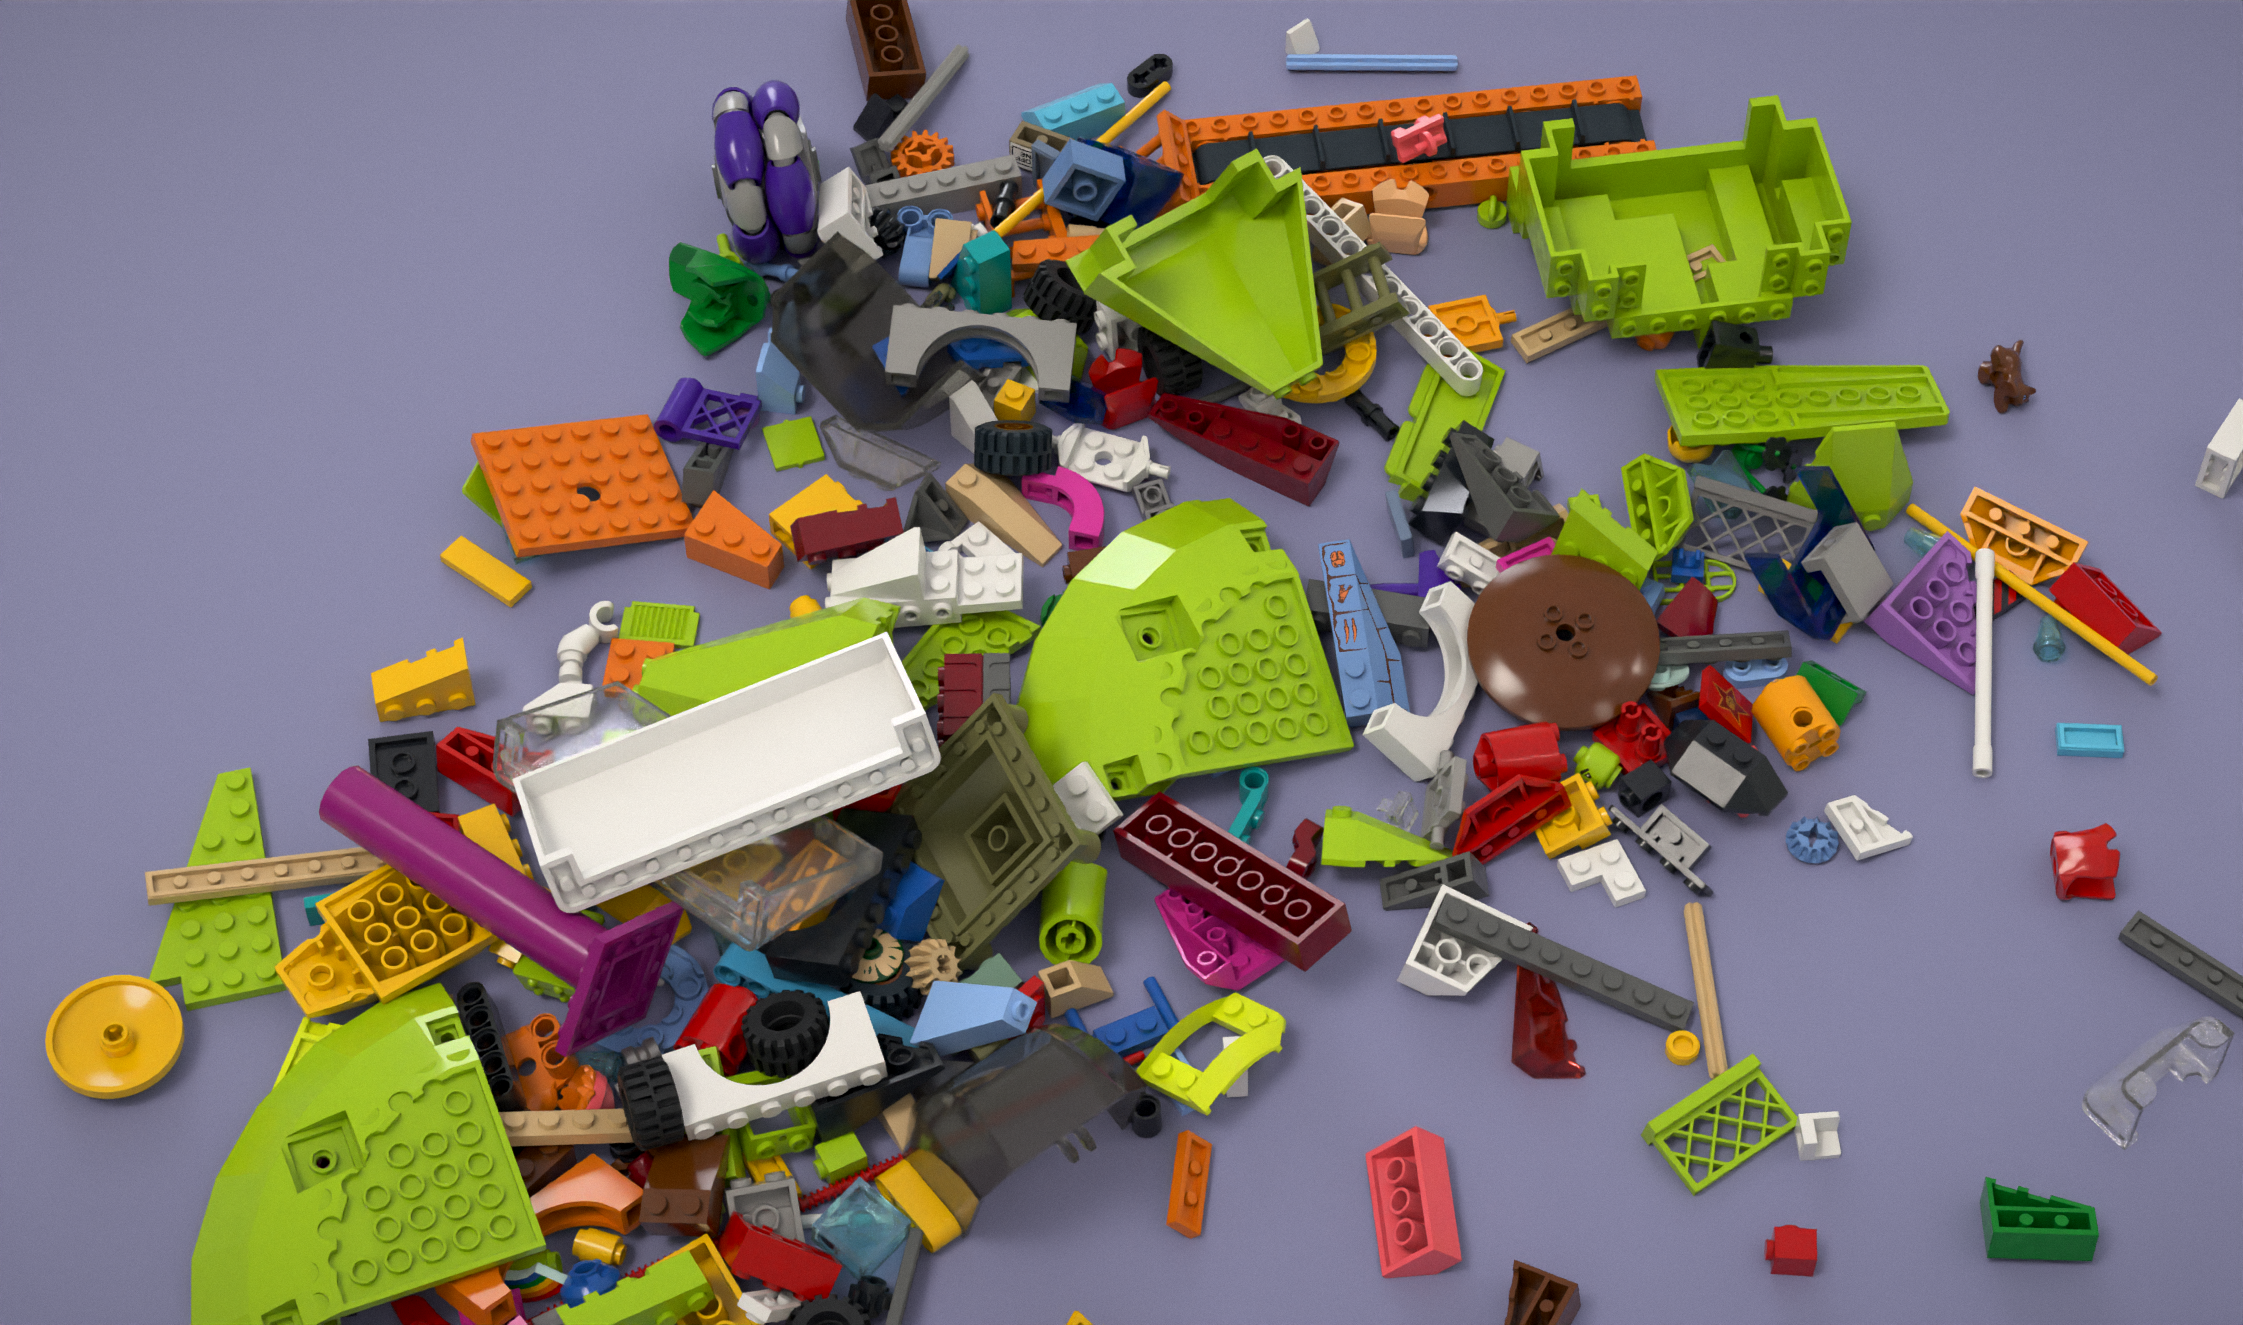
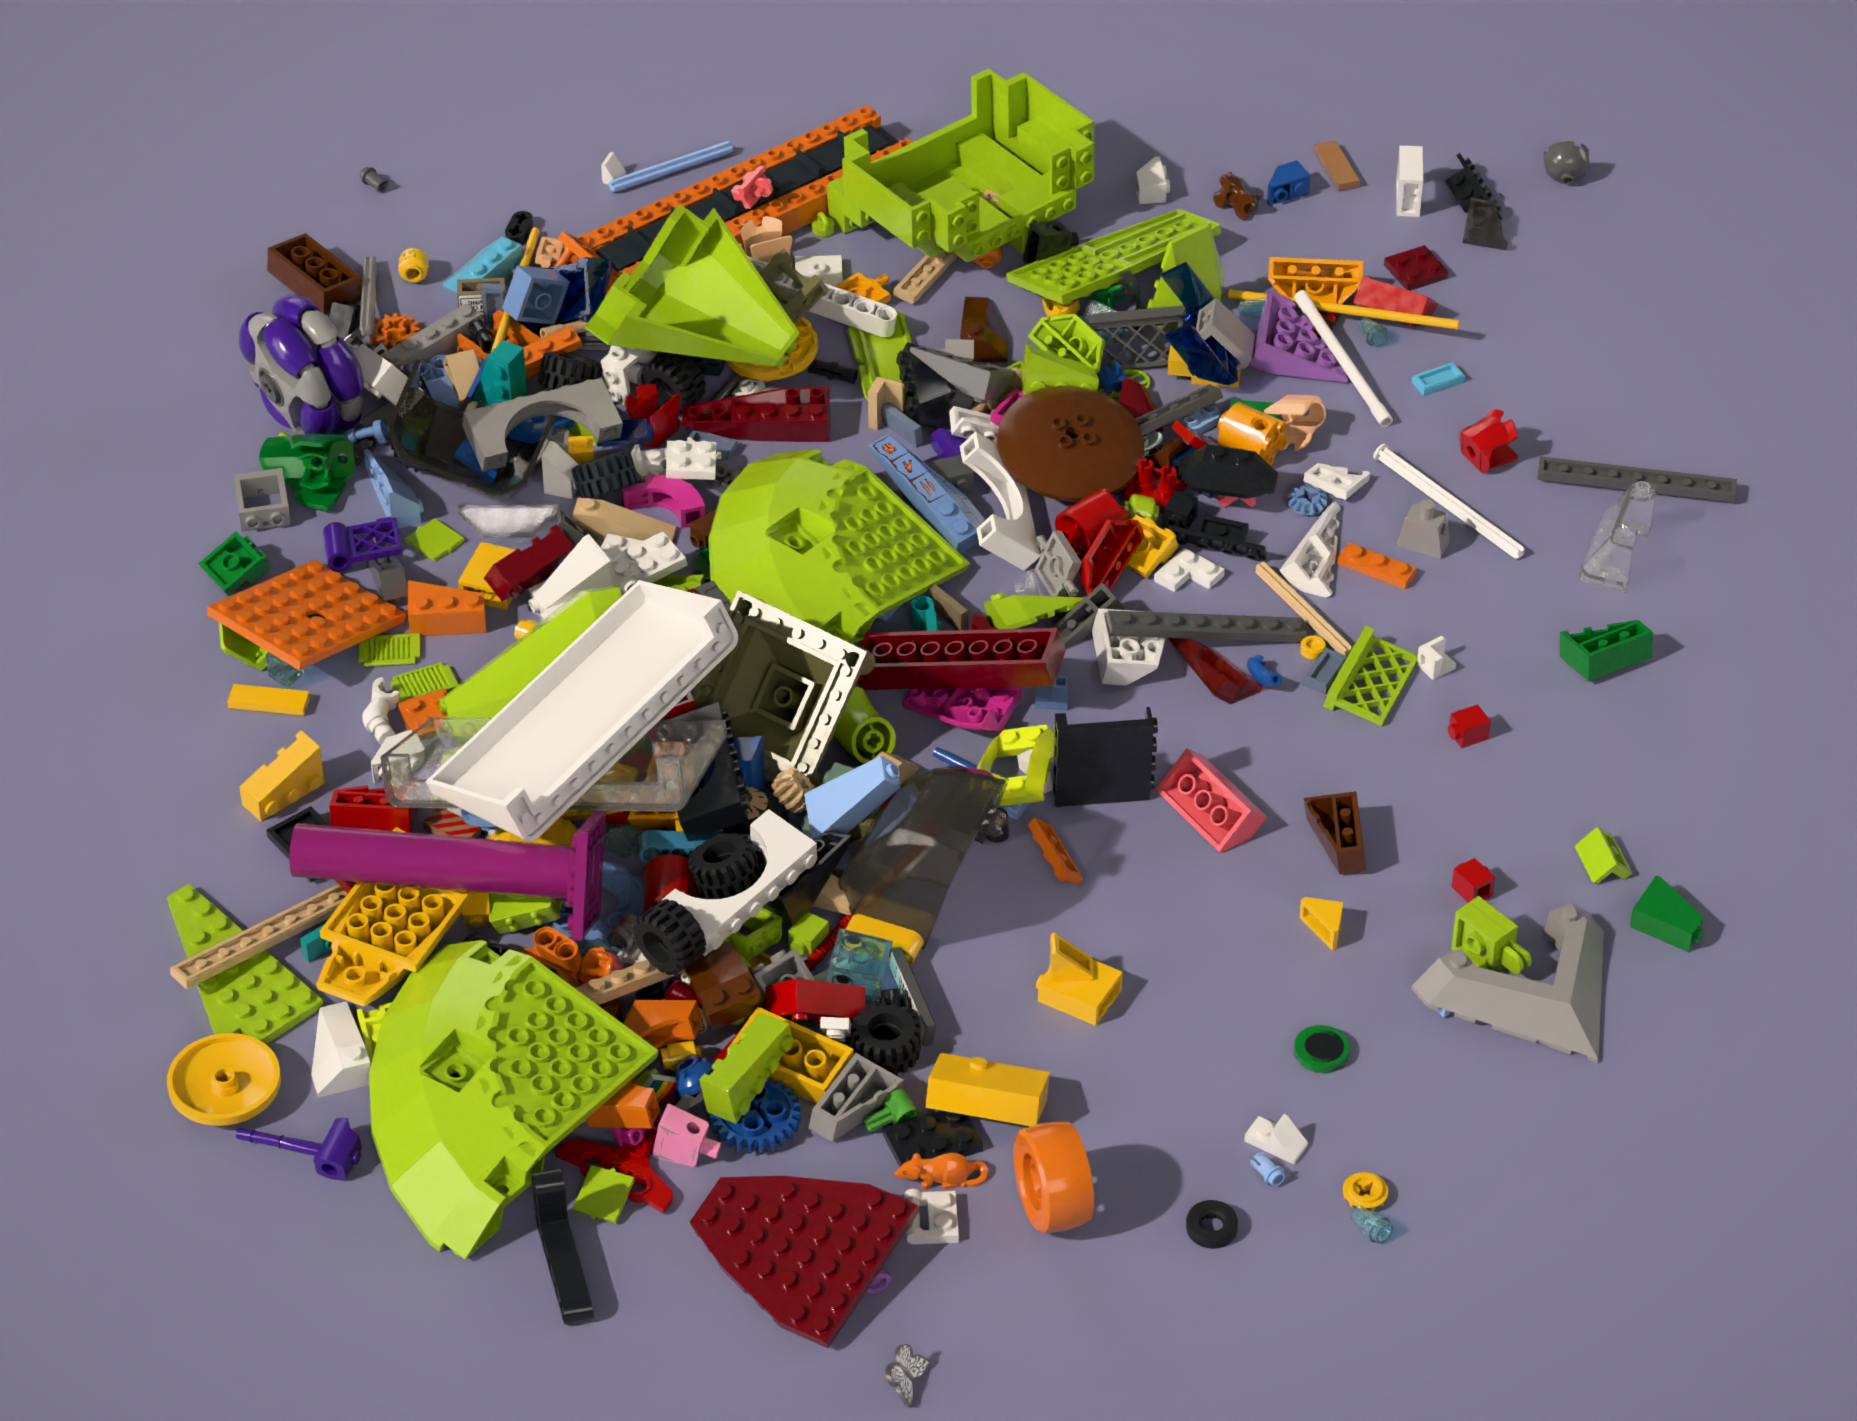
camera: 30 degrees left, 10 degrees down
(165, 1187) = (332, 1157): none -> dark purple piece
(256, 1060) = (339, 1052): none -> white wedge
(561, 383) = (235, 563): none -> green plate
(647, 290) = (260, 484): none -> light grey window
(653, 566) = (390, 650): none -> lime window
(999, 78) = (413, 265): none -> yellow head
(1122, 469) = (691, 460): none -> white plate
(1146, 125) = (549, 252): none -> light nougat plate
(1173, 453) = (724, 444): none -> sand blue tile
(1287, 795) = (948, 608): none -> dark tan tile
(1303, 1100) = (1103, 761): none -> black panel
(1331, 971) = (1055, 696): none -> medium blue piece
(1388, 476) = (881, 393): none -> tan panel
(1444, 274) = (825, 267): none -> white plate
(1578, 433) = (983, 327): none -> reddish brown wedge
(1592, 1056) = (1262, 675): none -> blue arm
(1673, 1086) = (1324, 671): none -> sand blue tile
(1756, 930) = (1311, 562): none -> white wedge
(1836, 969) = (1376, 565): none -> orange plate
(1867, 728) = (1299, 426): none -> light nougat piece
(1914, 315) = (1152, 182): none -> white slope
(1920, 953) = (1425, 530): none -> light grey torso
(1984, 921) = (1448, 501): none -> white axle
(2081, 385) = (1288, 182): none -> blue slope
(2164, 384) = (1336, 165): none -> medium nougat tile
(2166, 571) = (1416, 268): none -> dark red plate

